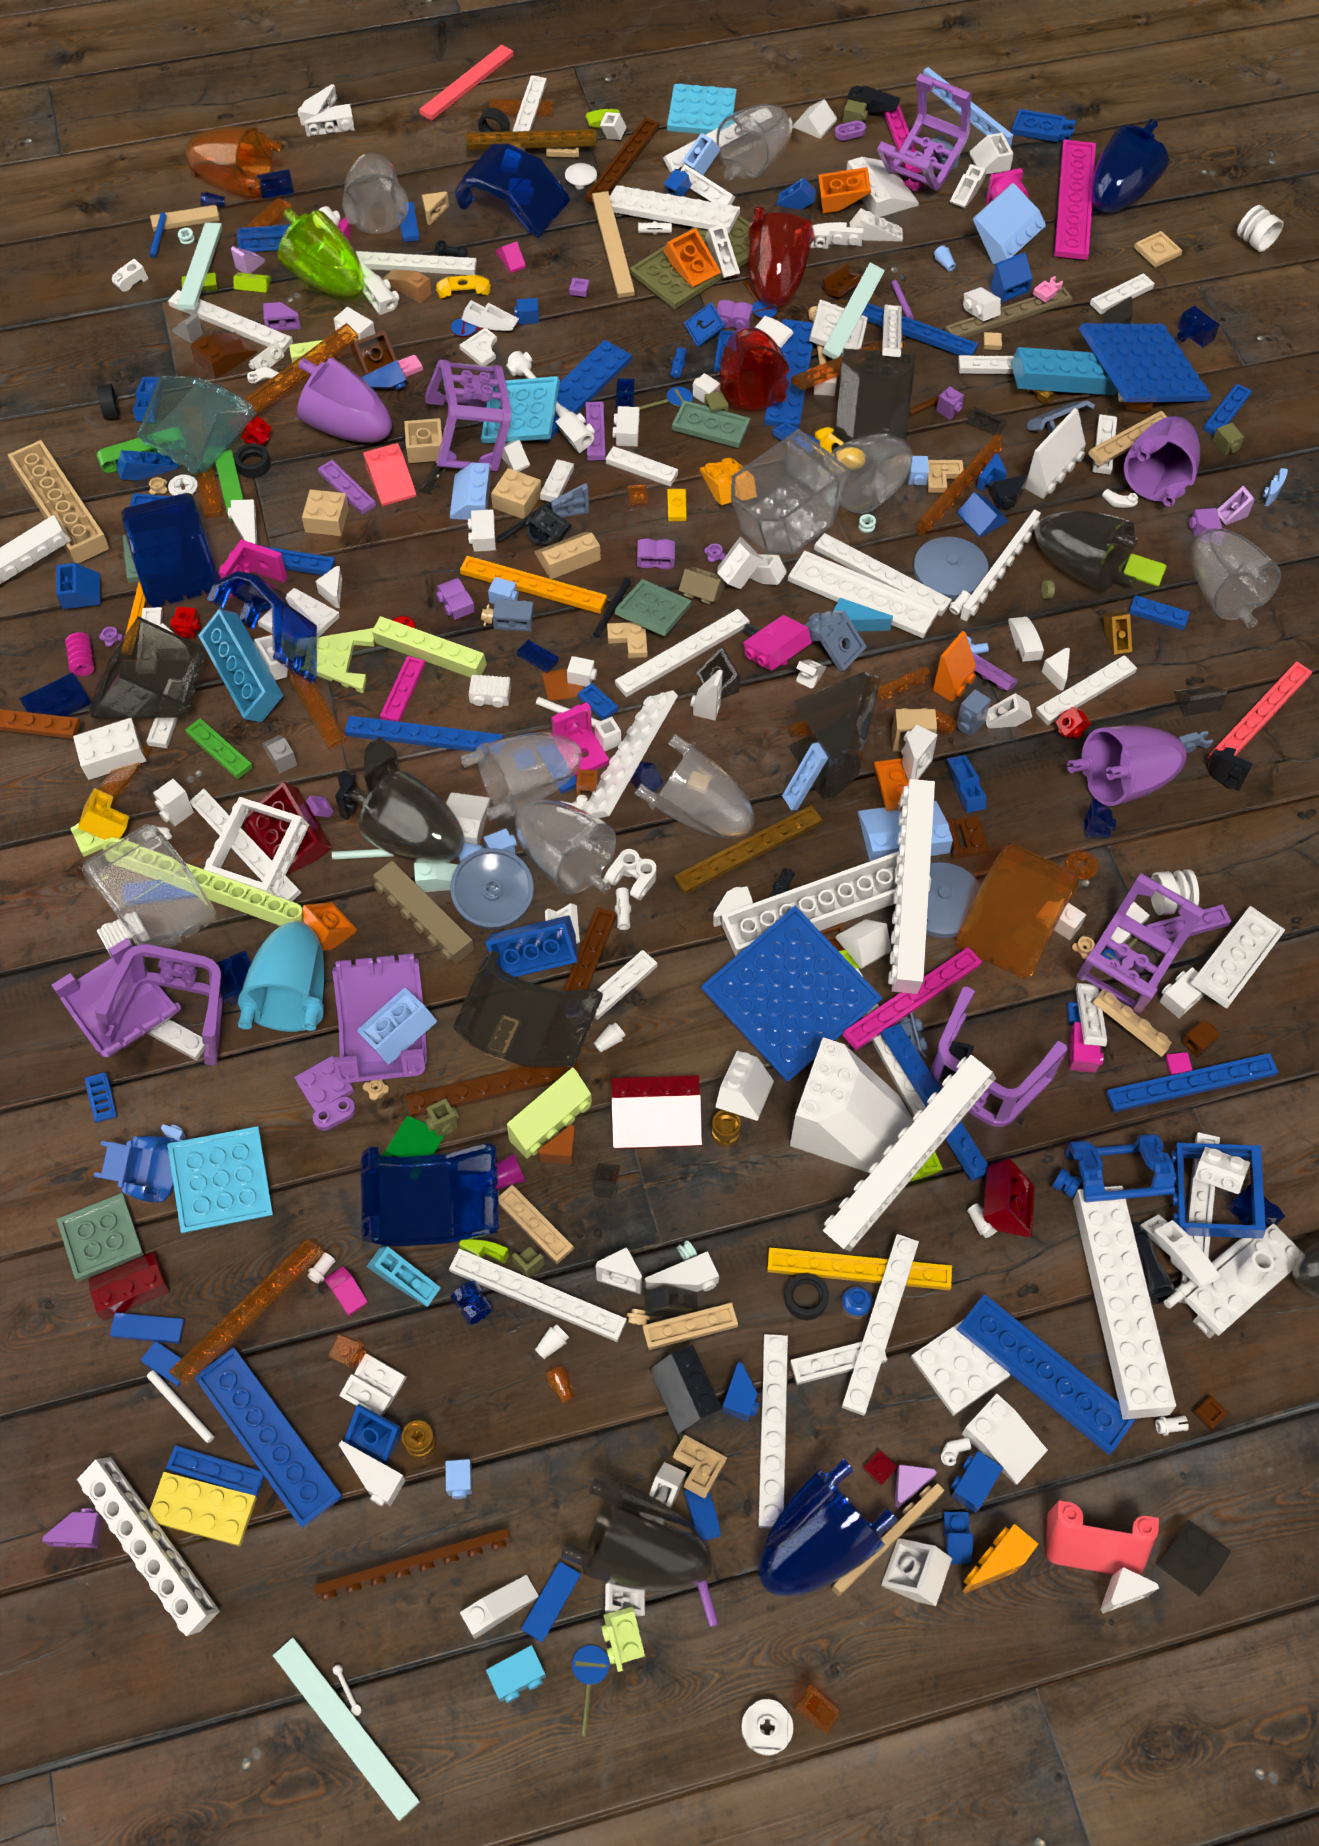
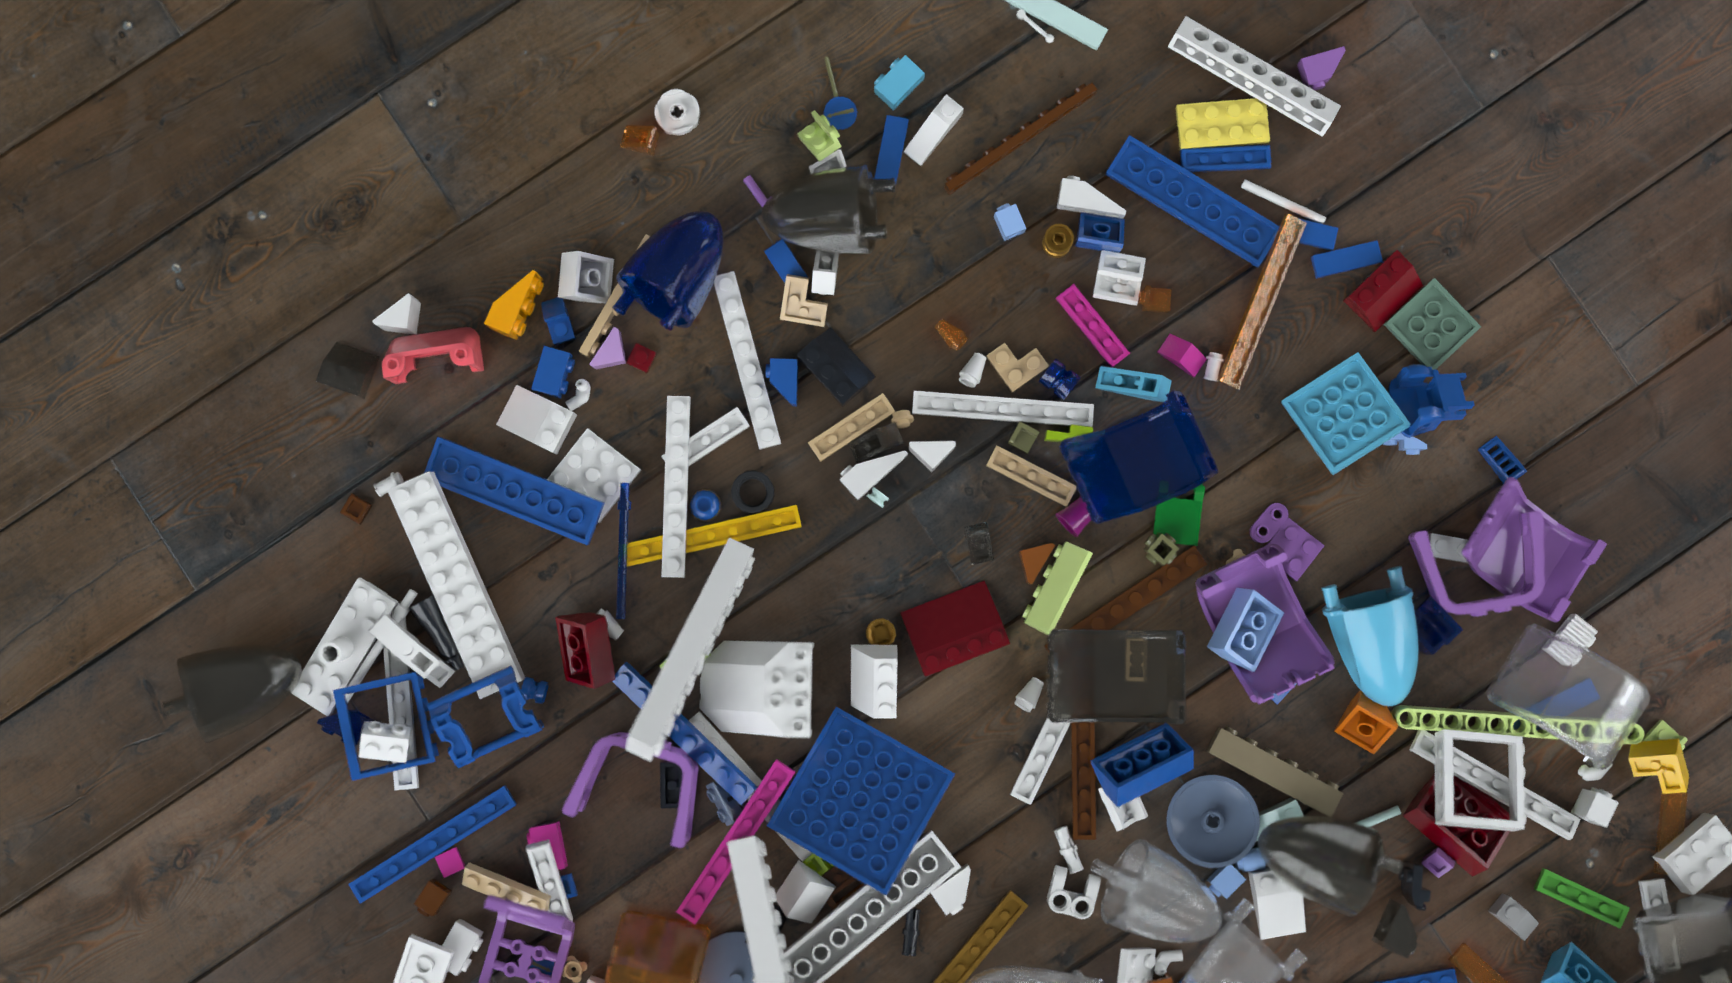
camera: 165 degrees right, 25 degrees up
(418, 1348) = (1092, 325): none -> dark pink tile
(509, 1327) = (1013, 371): none -> tan plate
(937, 1320) = (624, 506): none -> clear blue bar

